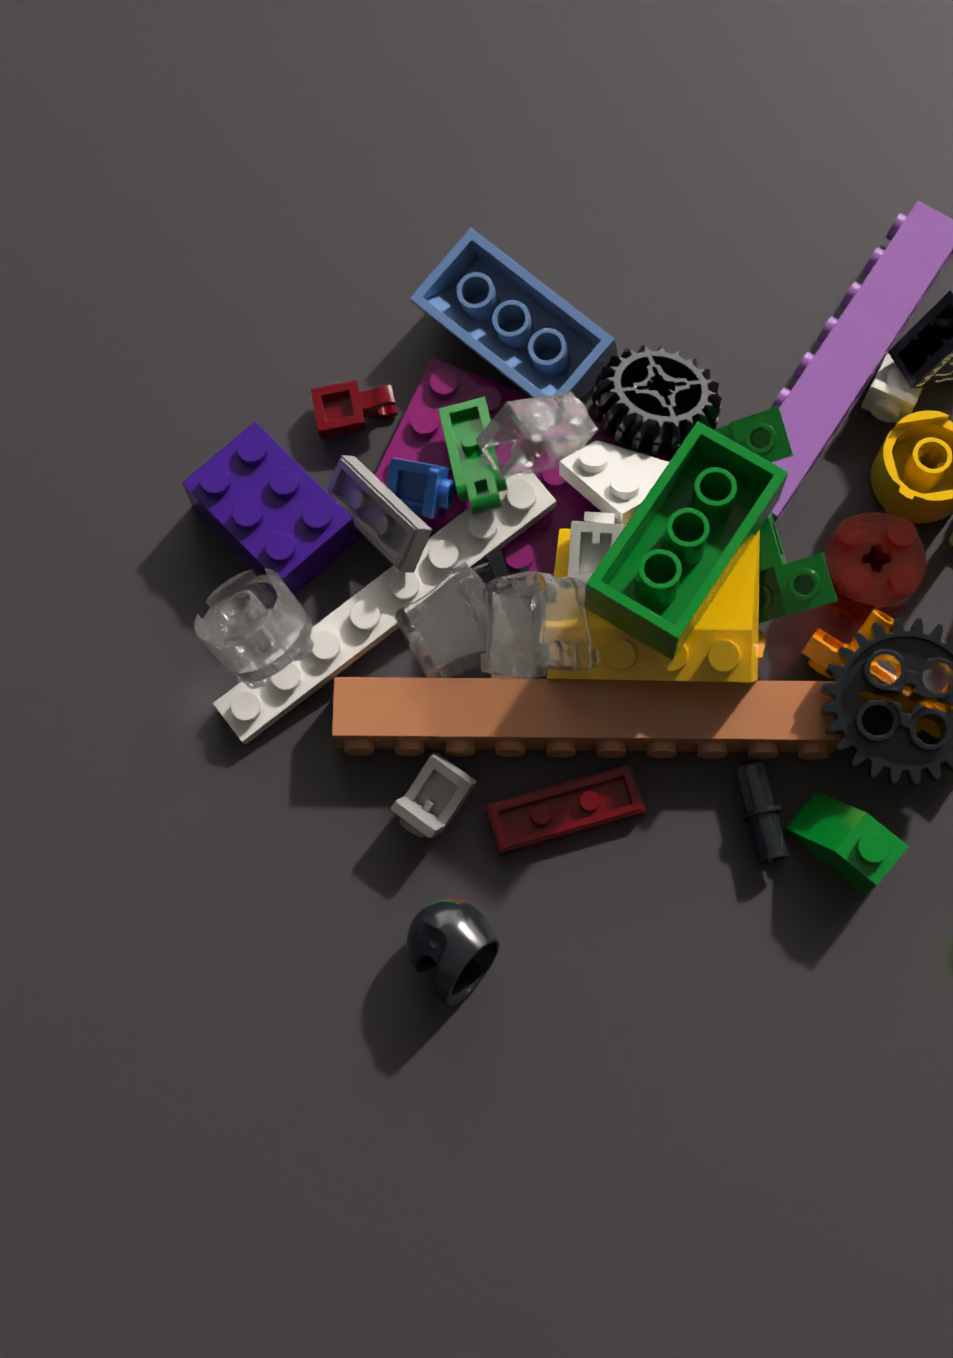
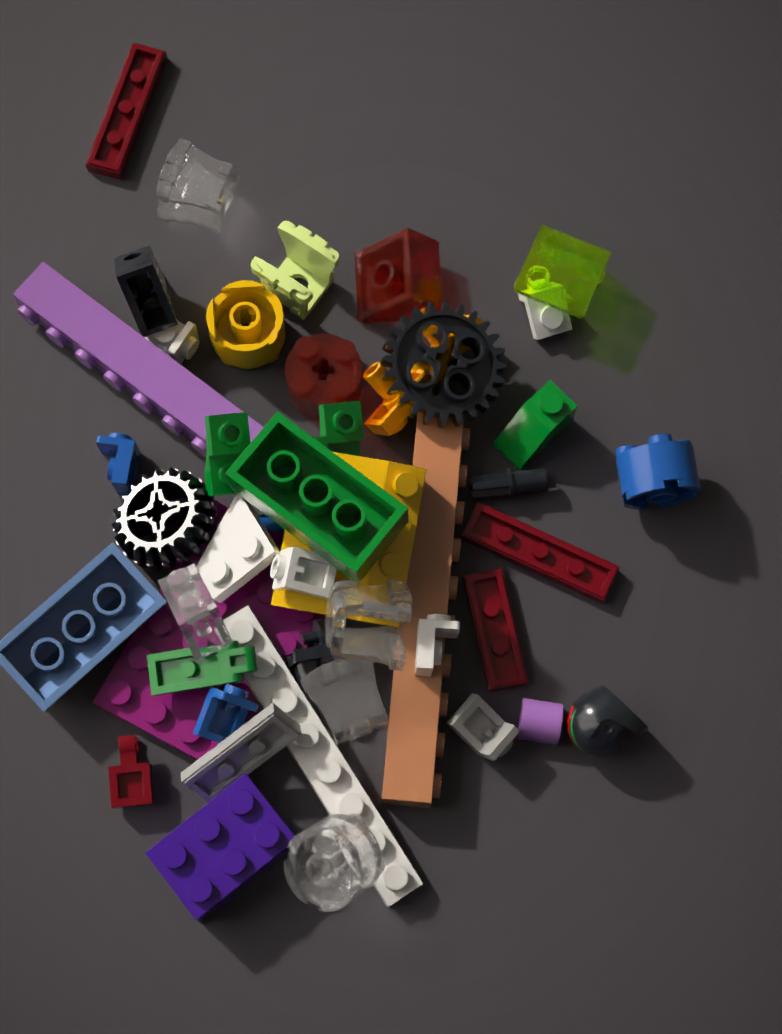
camera: 90 degrees left, 0 degrees up
(451, 870) = (540, 721): none -> medium lavender brick
(519, 707) = (427, 648): none -> white bracket
(673, 862) = (540, 552): none -> dark red tile
(726, 355) = (125, 466): none -> blue bracket
(798, 1002) = (657, 472): none -> blue brick

